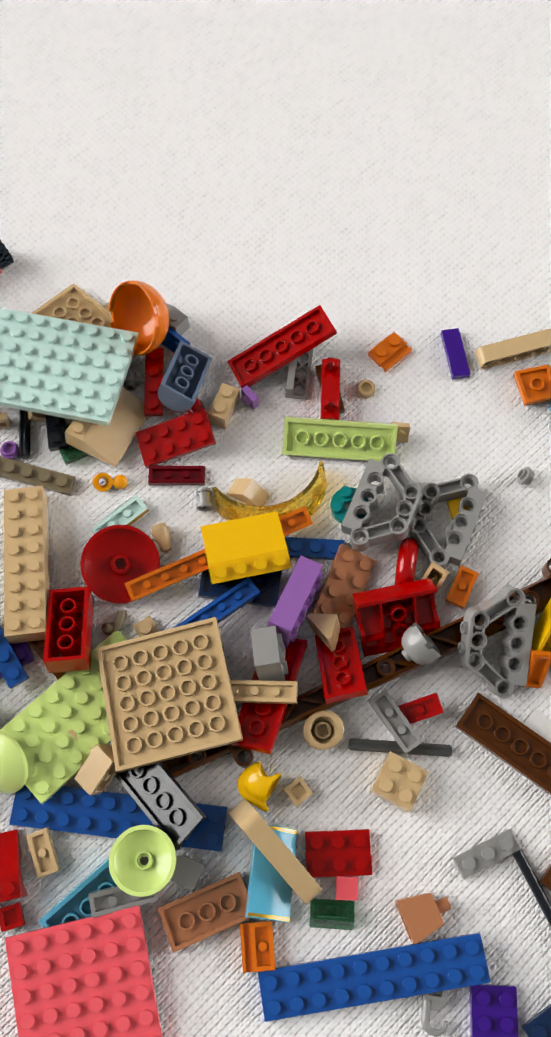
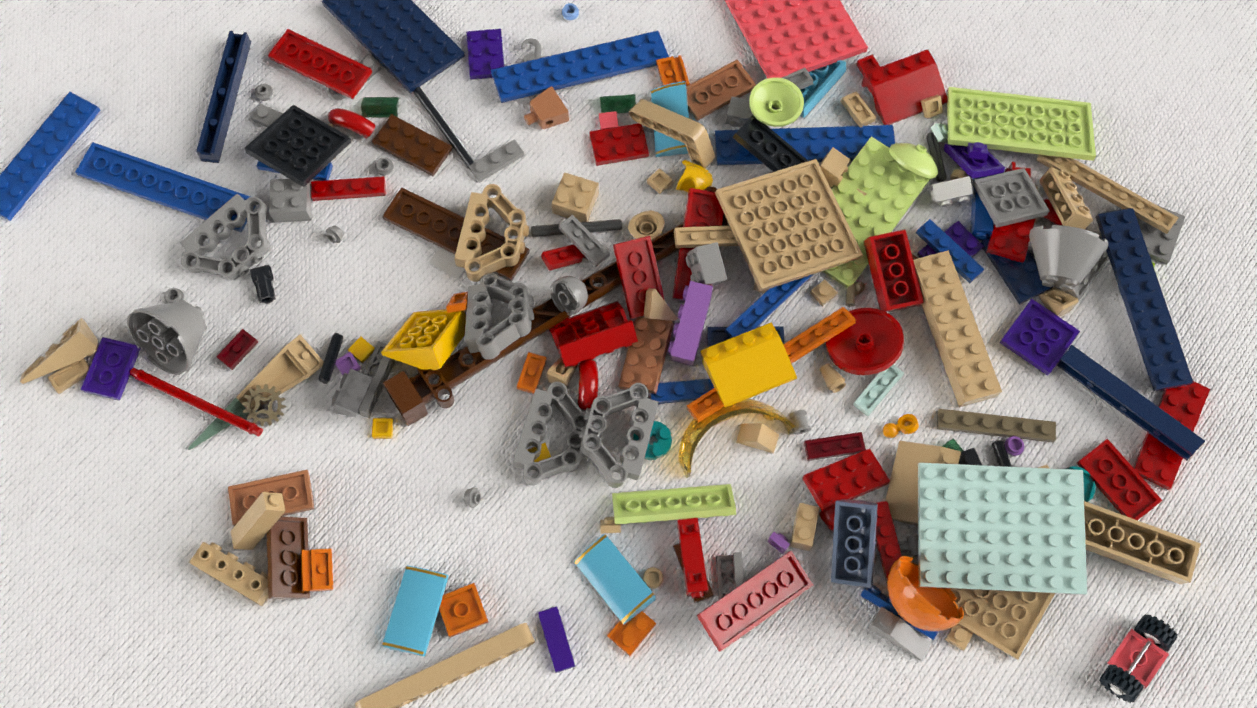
camera: 170 degrees right, 0 degrees up
(399, 388) = (614, 579): none -> medium azure slope
(480, 771) = (495, 259): none -> tan brick

